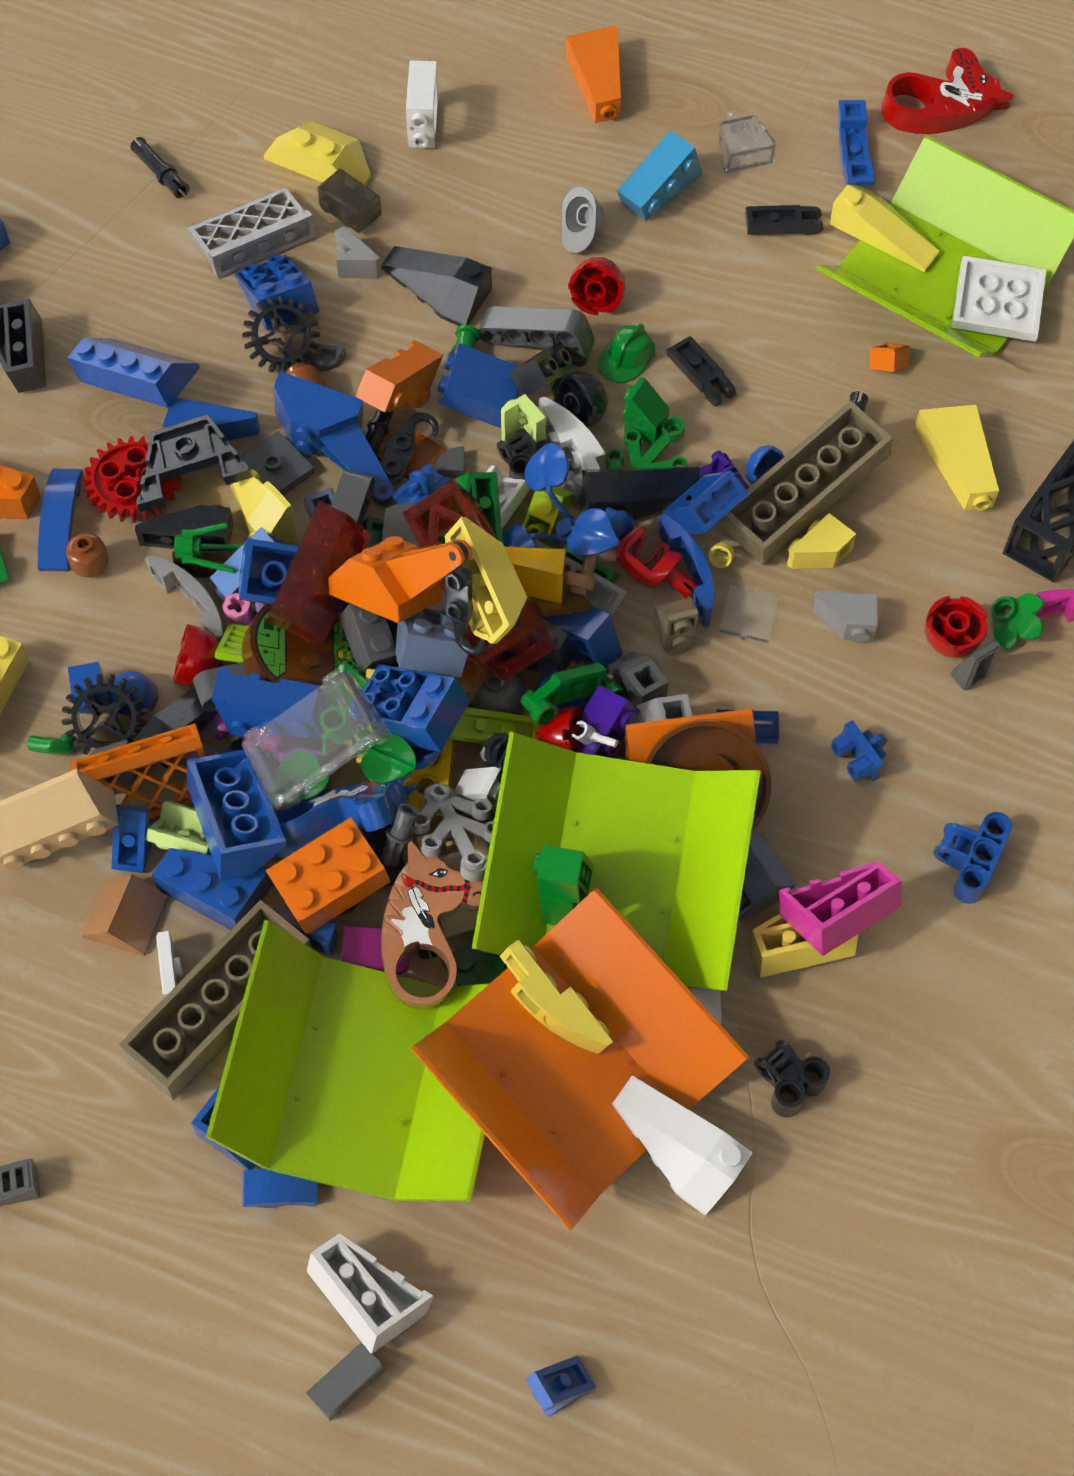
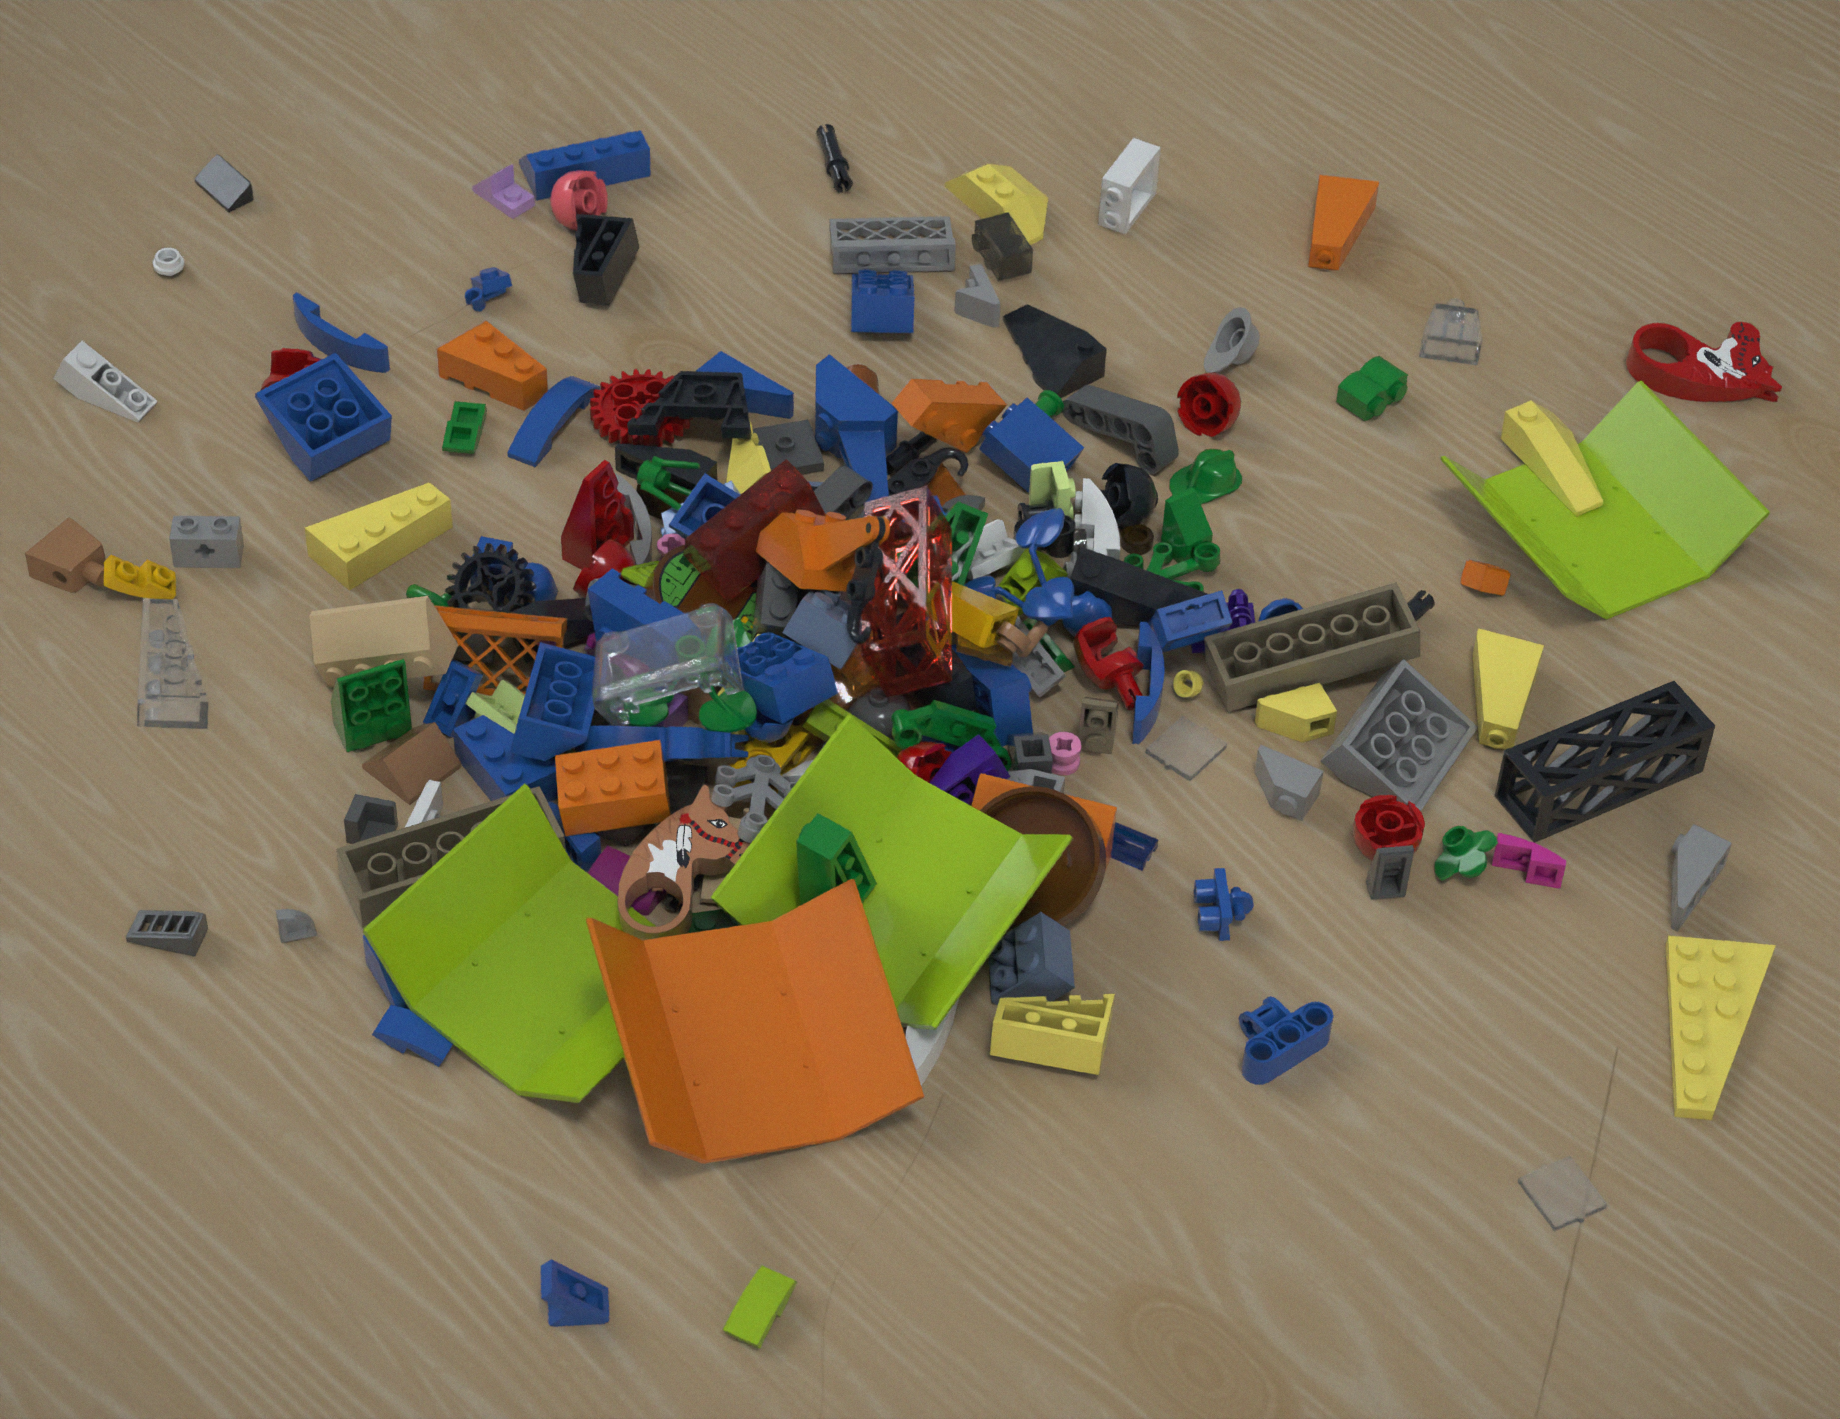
camera: 25 degrees right, 15 degrees down
(69, 885) = (372, 706): none -> green slope
(87, 555) = (558, 455): dark orange head -> none
(115, 1128) = (294, 925): none -> light grey tile
(125, 993) = (369, 818): none -> dark grey panel
(131, 370) = (694, 315): blue slope -> none
(164, 617) = (596, 517): none -> red wedge
(277, 321) = (872, 334): black gear -> none
(328, 357) = (896, 375): dark grey tile -> none
(345, 1381) = (379, 1214): dark grey slope -> none
(366, 1293) = (439, 1145): white wedge -> none
(399, 835) = (699, 775): dark grey axle -> none
(495, 584) = (905, 574): light yellow wedge -> none
(541, 369) = (1097, 451): black brick -> none
(561, 1013) = (758, 976): light yellow slope -> none
(590, 735) = (943, 773): white hand -> none
(606, 433) = (1137, 539): none -> dark brown tile
(660, 176) = (1340, 332): dark azure wedge -> none
(668, 657) = (1065, 753): none -> bright pink wheel
(688, 1149) = (820, 1158): white wedge -> none
(701, 370) = (1273, 517): black hinge -> none
(711, 218) = (1372, 388): none -> green brick
(713, 1312) = (759, 1305): none -> lime slope
(783, 219) = (1451, 416): black hinge -> none
(787, 1074) = (963, 1149): black piece -> none
(841, 907) = (1098, 1004): dark pink wedge -> none
(853, 143) = (1575, 373): blue slope -> none
(910, 536) = (1400, 738): none -> light grey slope
(999, 298) = (1638, 564): white plate -> none

